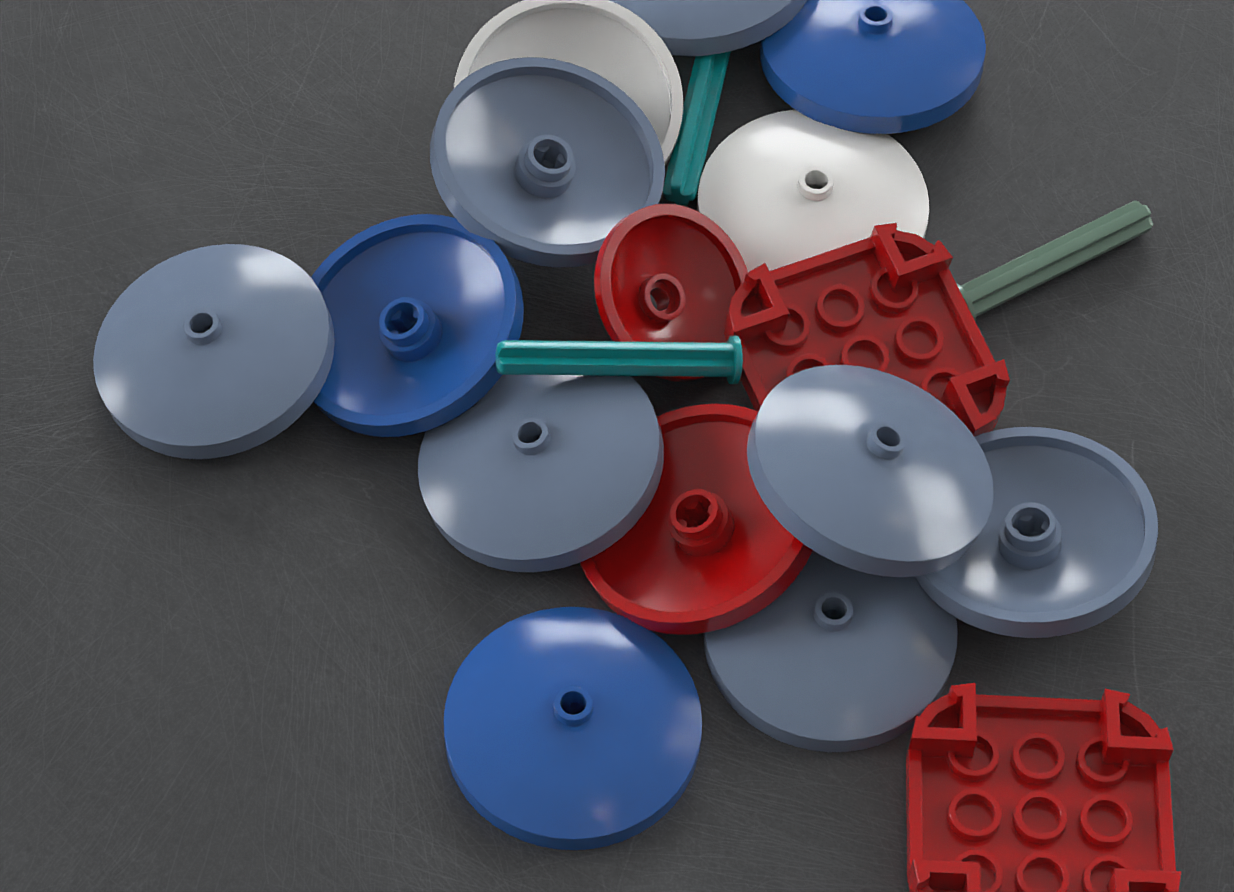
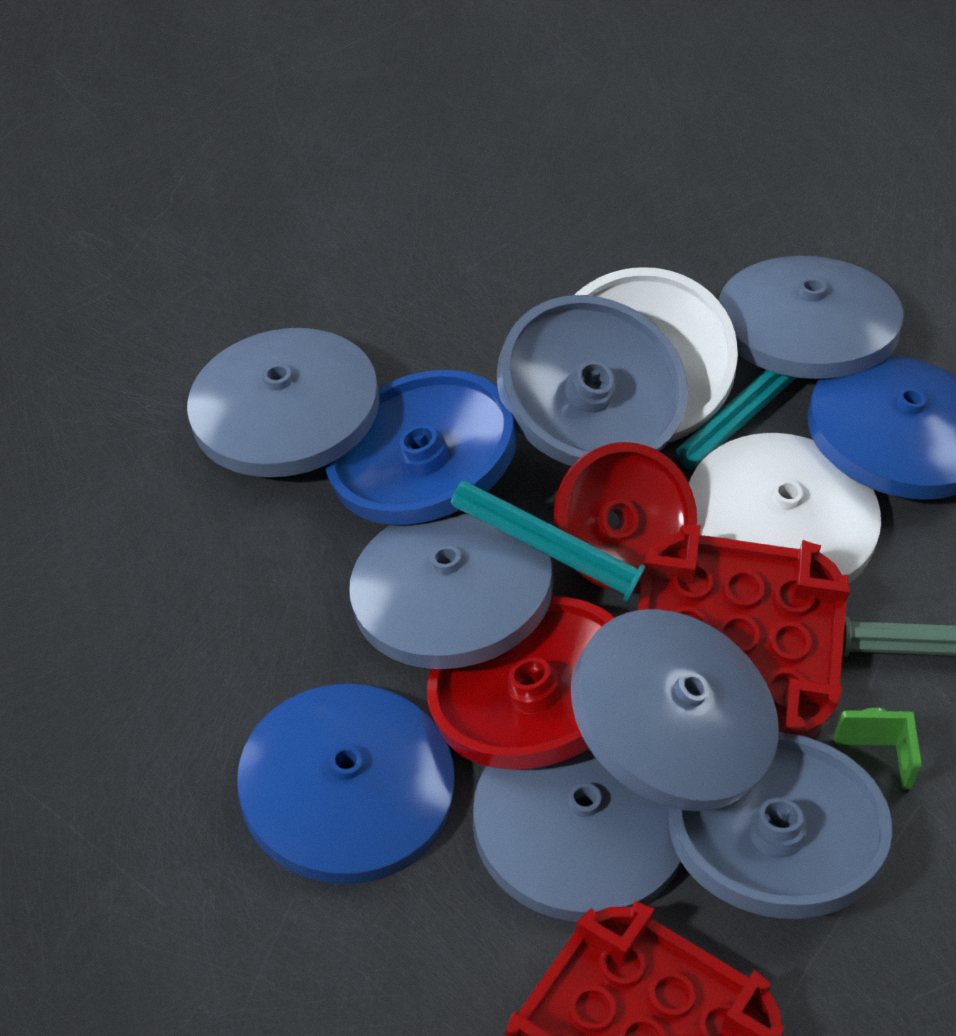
camera: 30 degrees right, 5 degrees down
(1070, 375) = (884, 727): none -> bright green bracket

